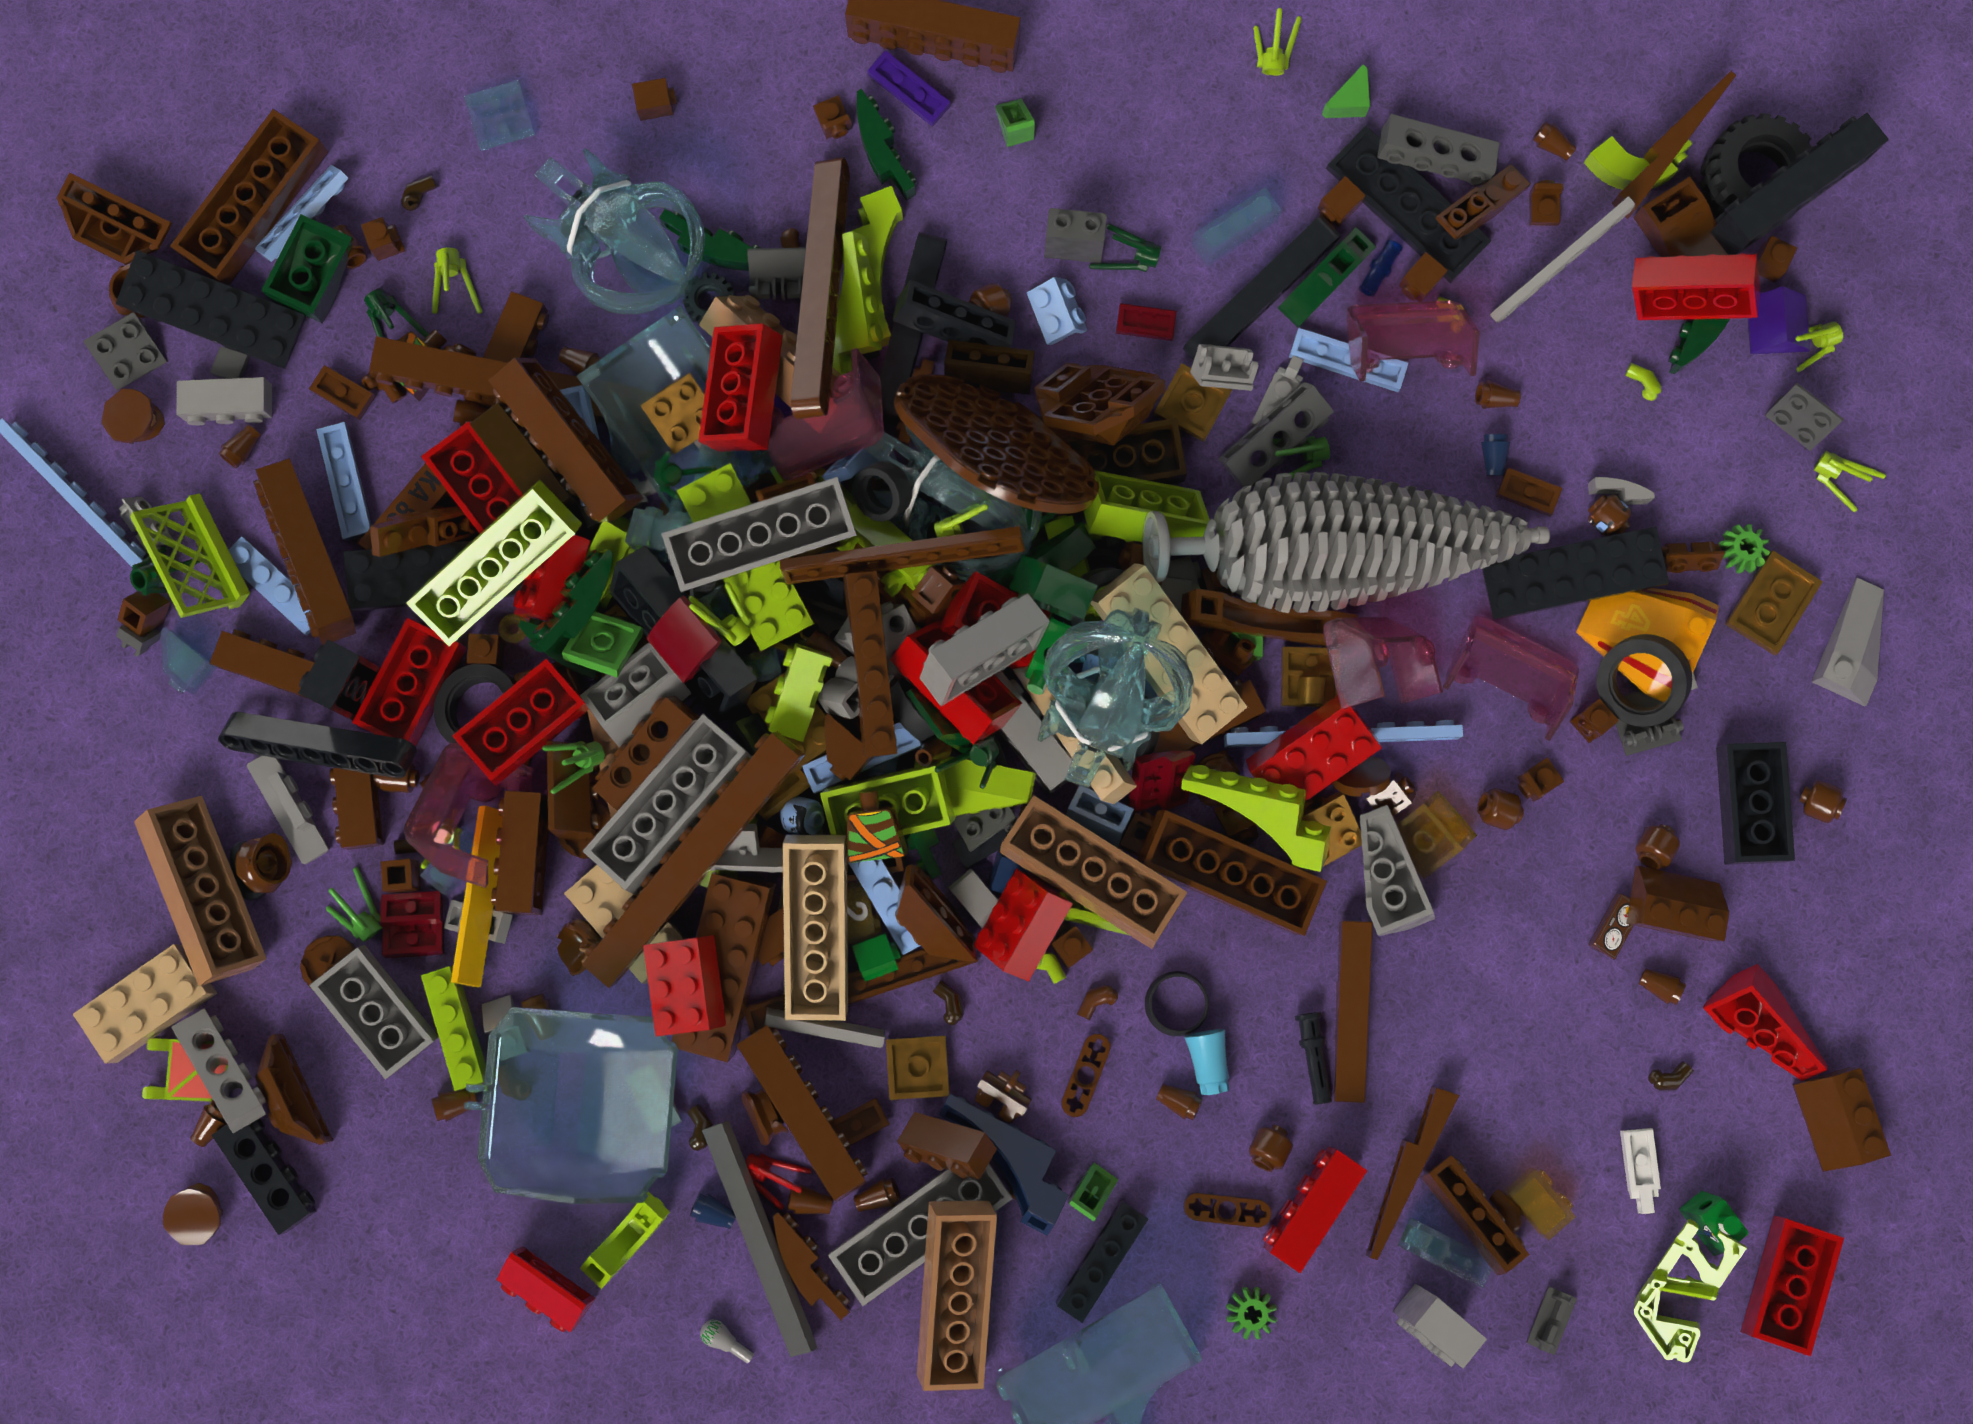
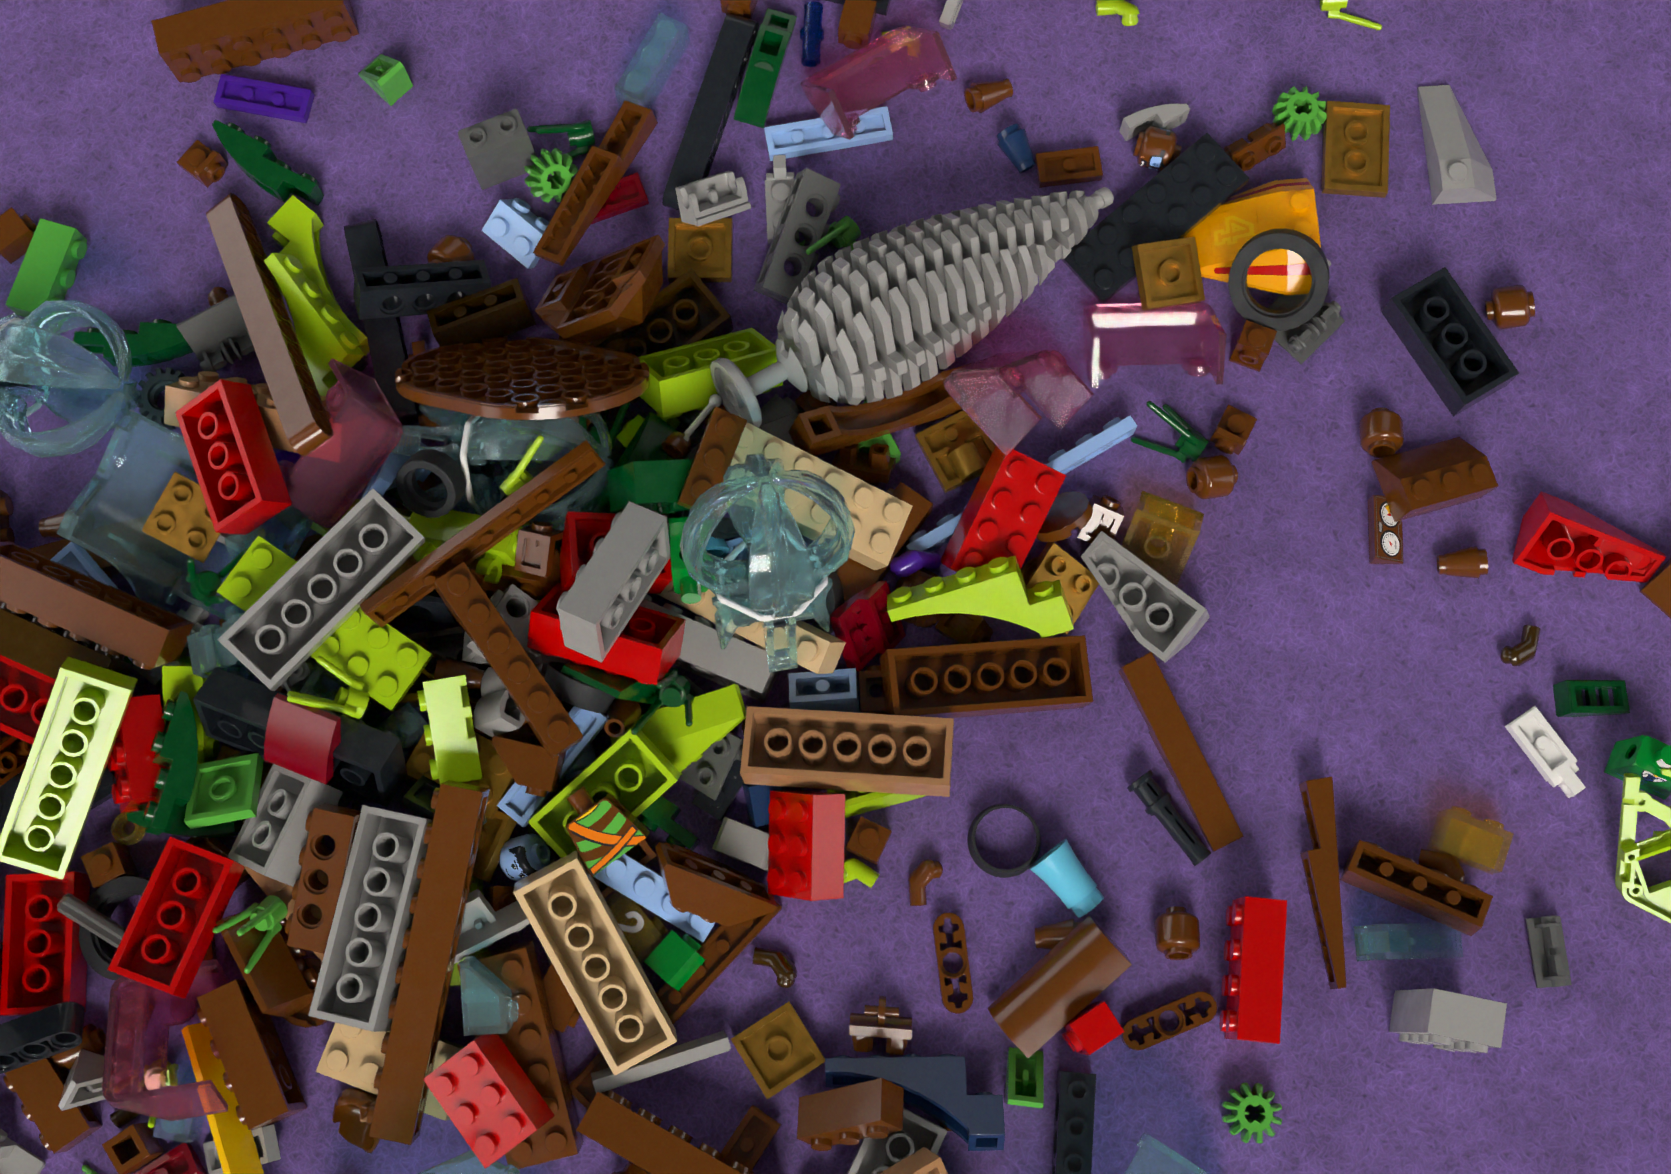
camera: 25 degrees left, 5 degrees down
(391, 806) = (83, 1081): none -> light grey slope
(455, 690) = (91, 919): none -> dark grey axle
(667, 144) = (47, 267): none -> bright green brick
(719, 913) = (485, 1000): none -> clear light blue slope
(1090, 560) = (678, 444): none -> hinge
(1105, 277) = (543, 167): none -> bright green gear
(1109, 591) = (712, 455): none -> reddish brown plate
(1138, 302) = (596, 181): none -> reddish brown slope
(1157, 1138) = (1059, 986): none -> reddish brown brick
(1163, 1183) = (1092, 1029): none -> red brick
(1225, 749) = (913, 561): none -> dark purple arm
(1498, 771) = (1190, 442): none -> dark green plant
(1558, 625) = (1168, 273): none -> pearl gold plate
(1684, 1138) = (1570, 702): none -> dark green slope

